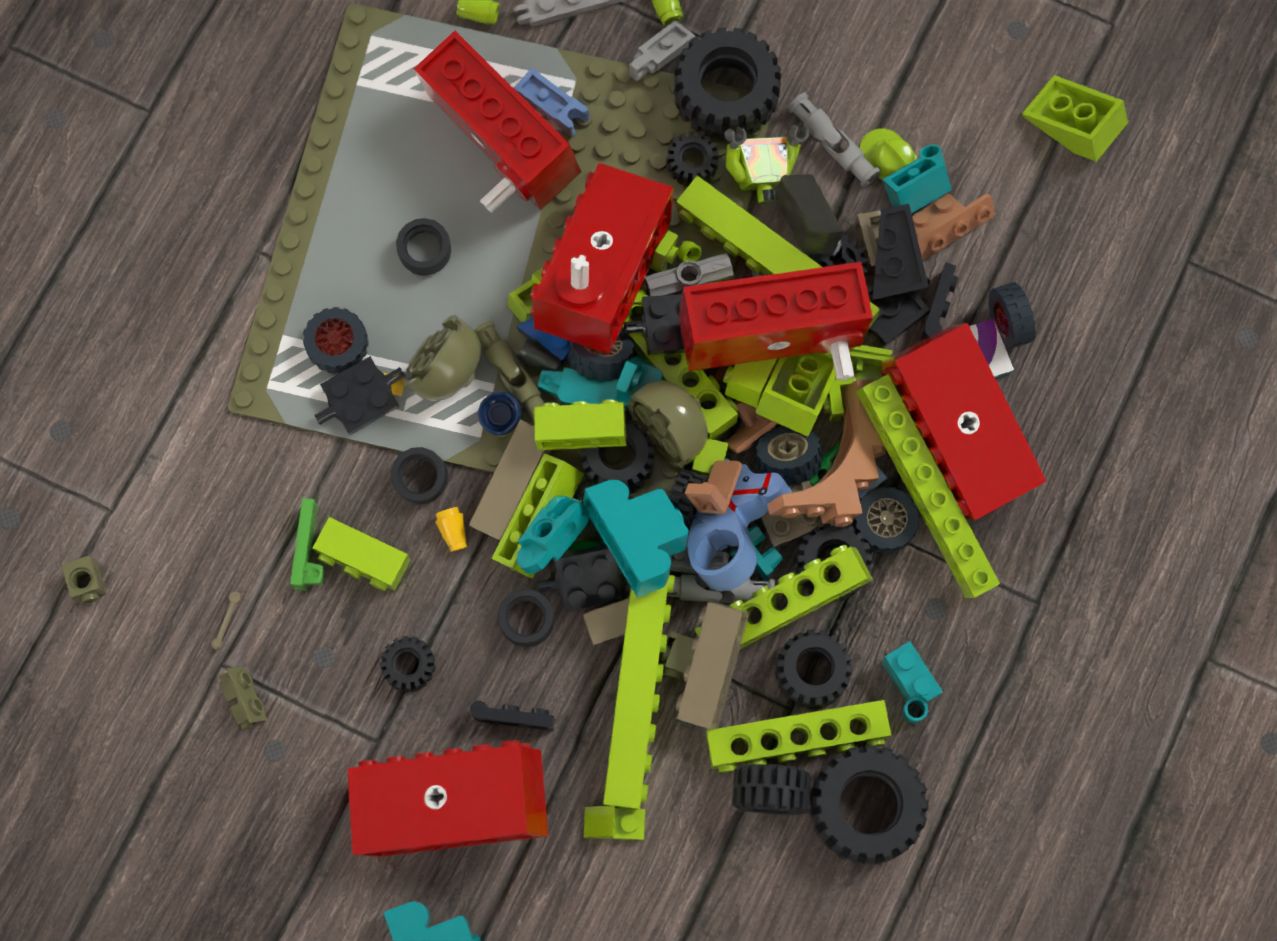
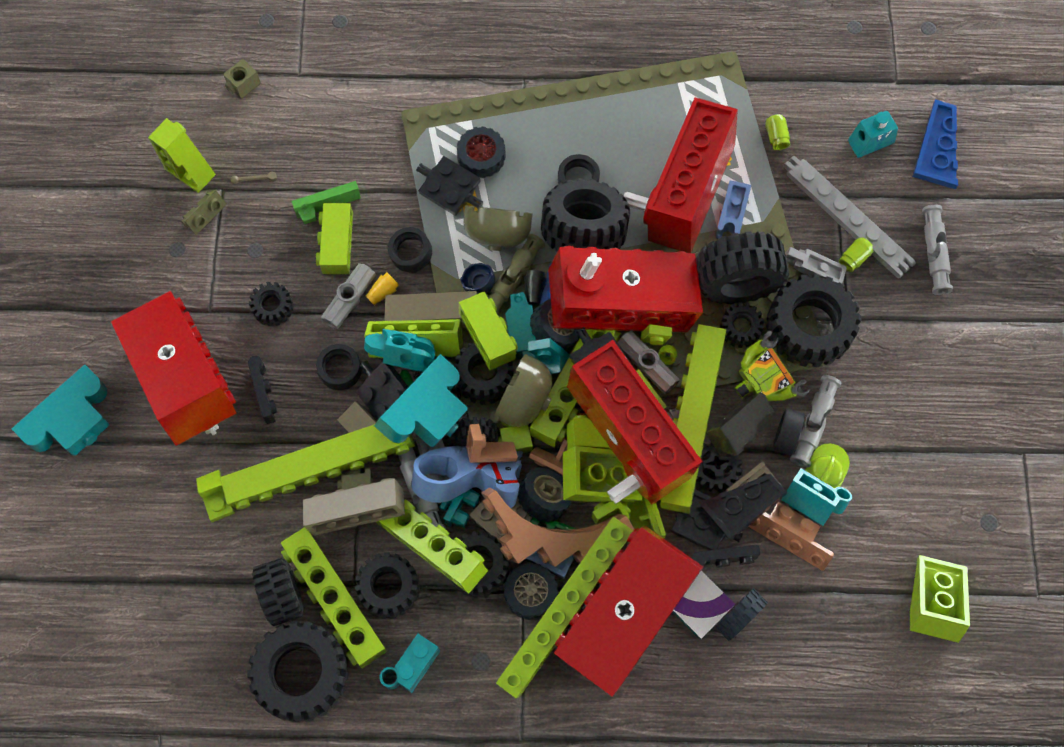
camera: 65 degrees right, 5 degrees down
(164, 689) = (180, 155): none -> lime wedge
(432, 556) = (341, 307): none -> light grey piece
(477, 238) = (573, 202): none -> black tyre
(640, 121) = (742, 267): none -> black tyre
(836, 171) = (788, 431): none -> black tyre

